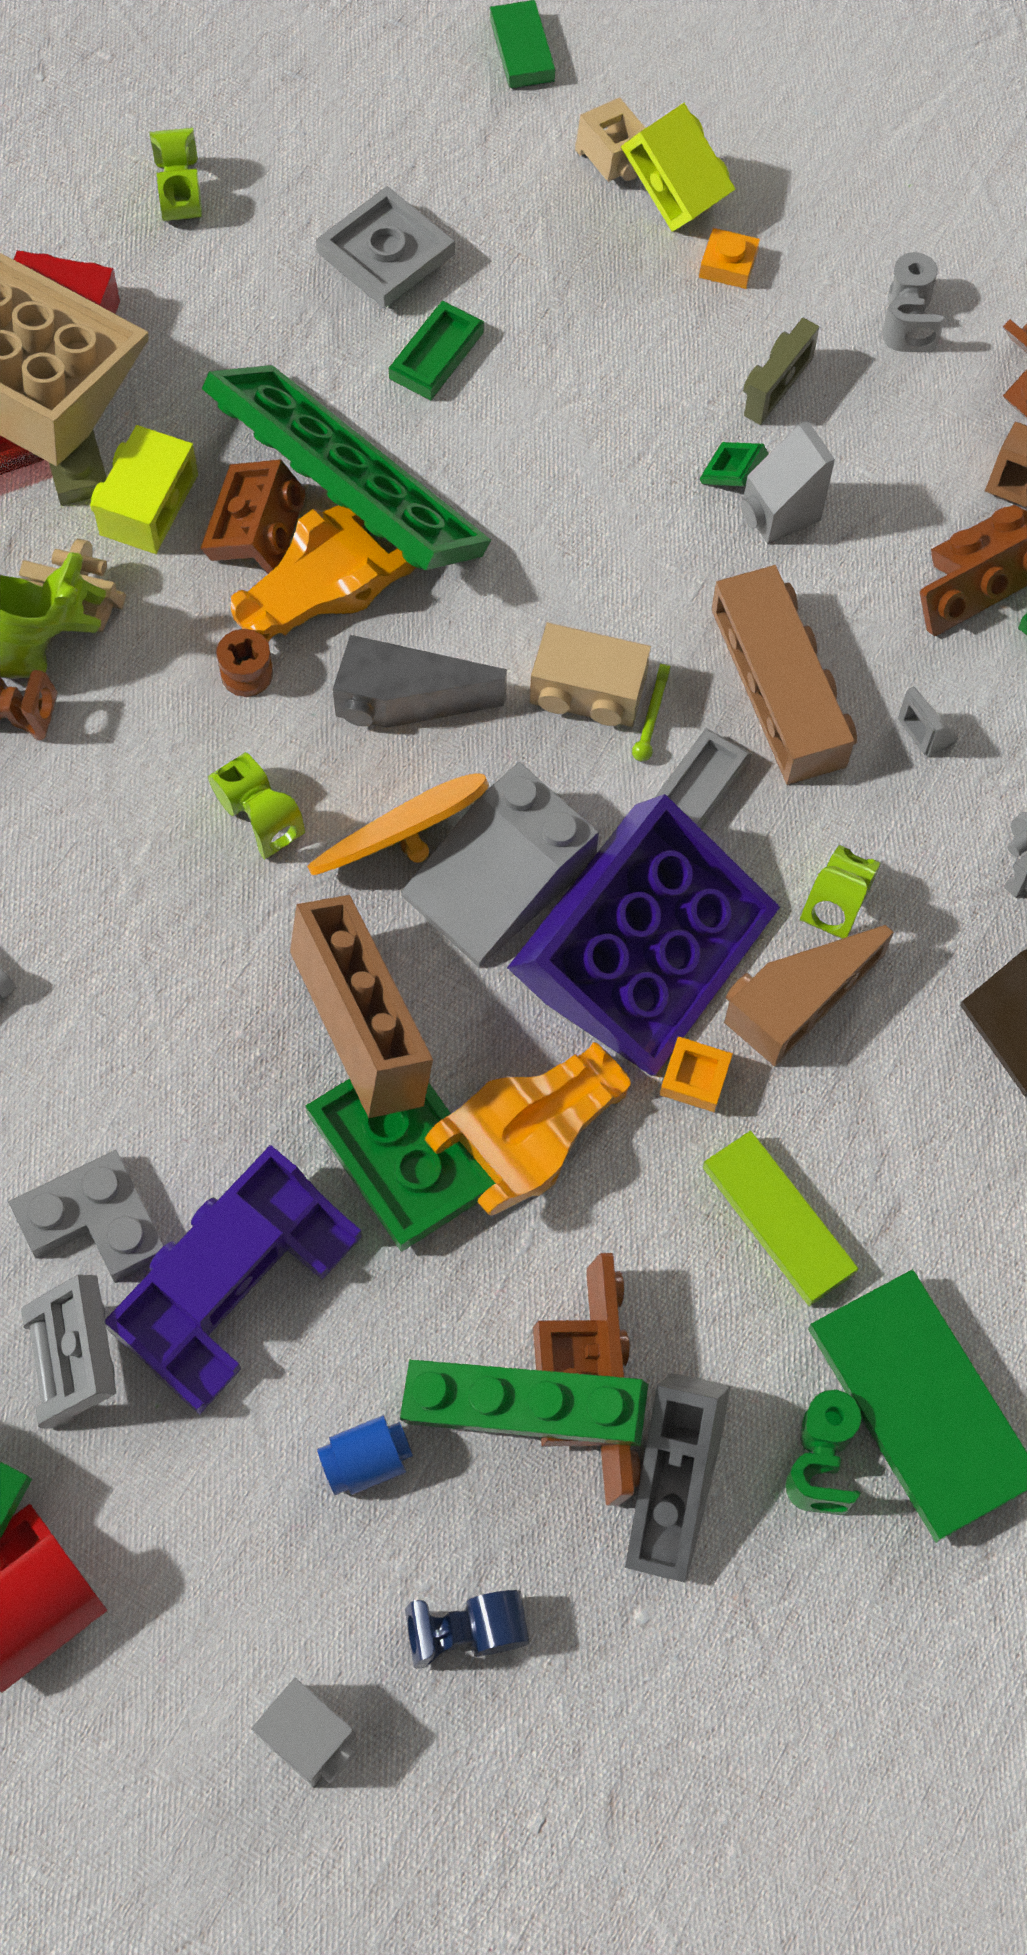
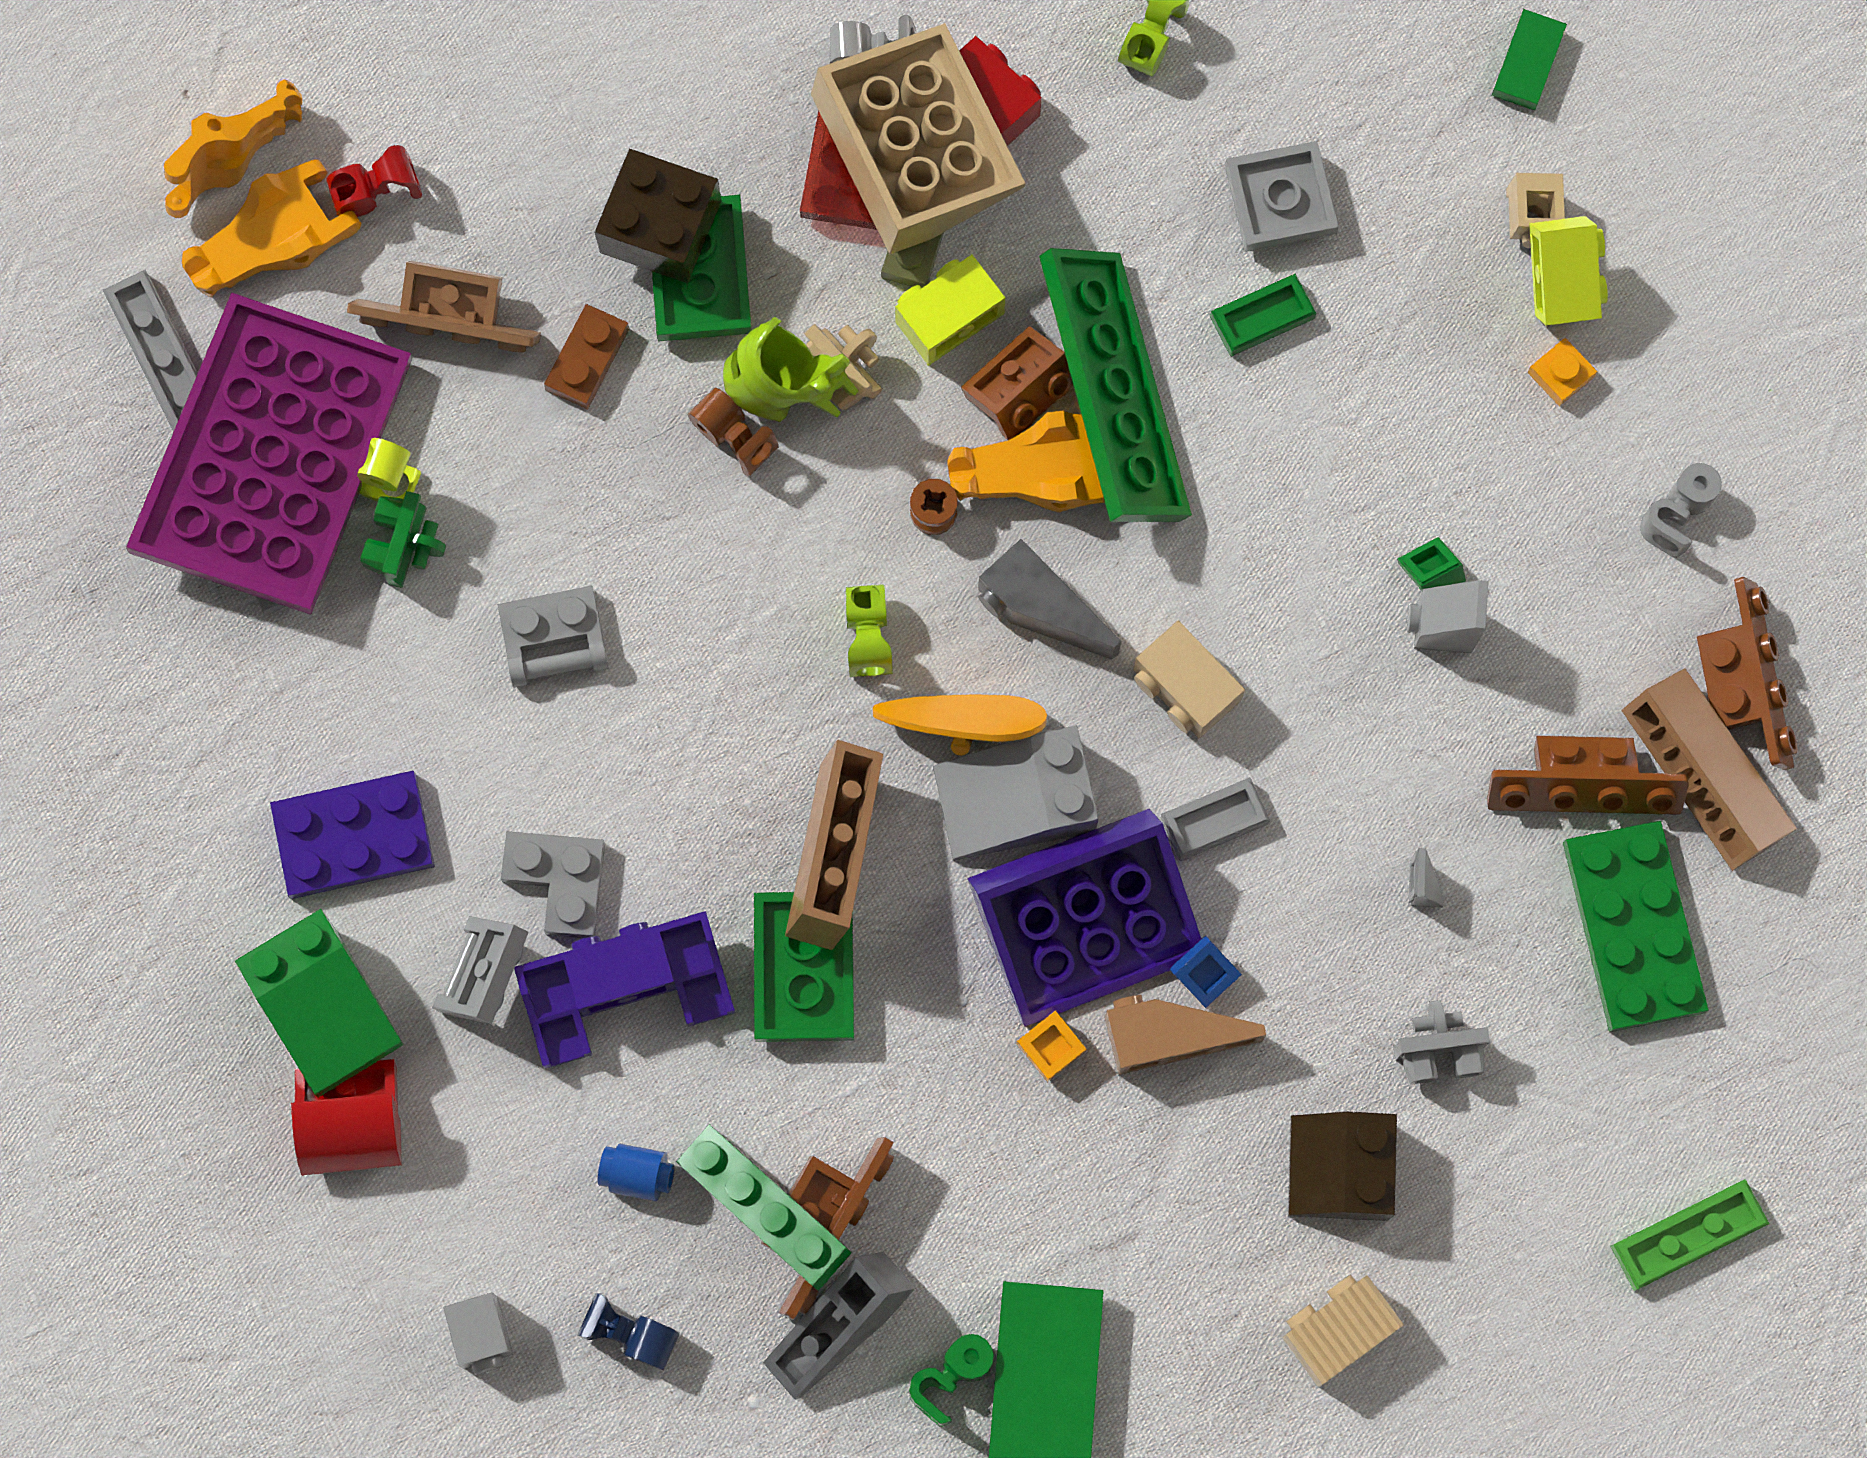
camera: 35 degrees right, 10 degrees up
(528, 1124) = (901, 1009): light orange animal -> none
(642, 749) = (1190, 764): lime hinge -> none
(780, 1218) = (1039, 1190): lime tile -> none
(781, 918) = (1205, 971): none -> blue plate
(783, 674) = (1339, 769): medium nougat brick -> none
(787, 361) = (1542, 497): olive plate -> none
(844, 883) = (1250, 975): lime leg -> none

